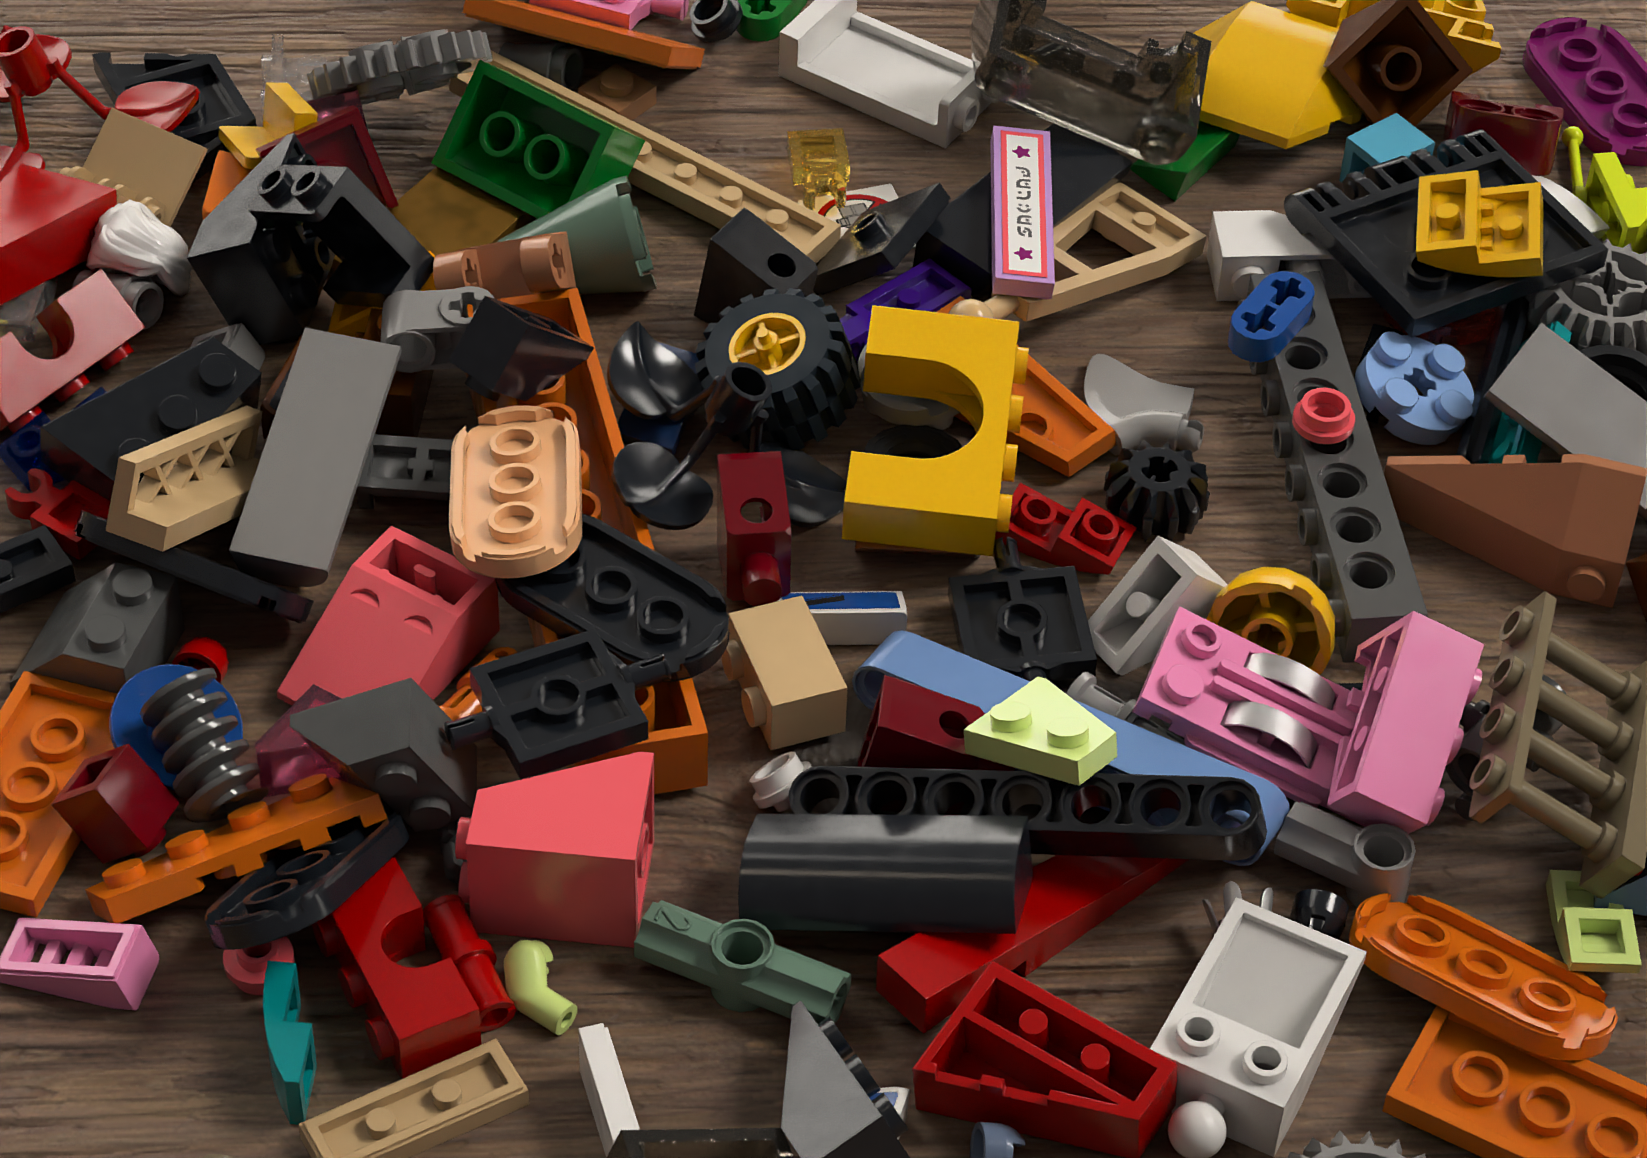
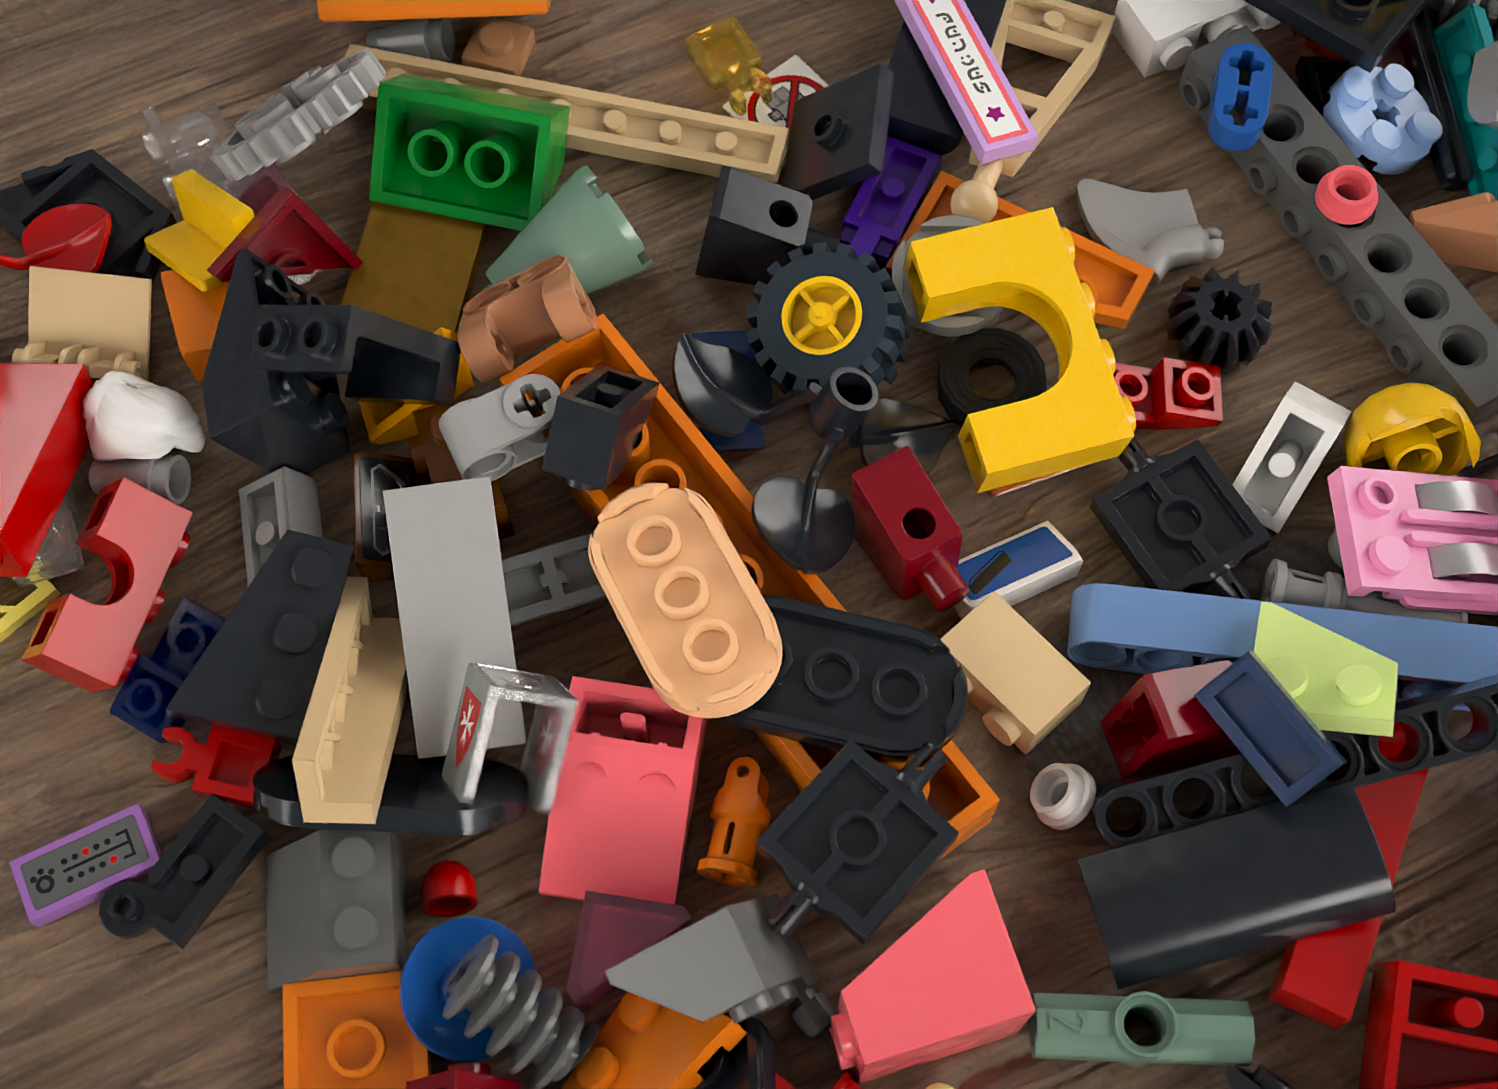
camera: 20 degrees left, 20 degrees up
(314, 486) = (546, 739): none -> clear piece
(971, 744) = (1269, 728): none -> dark blue tile

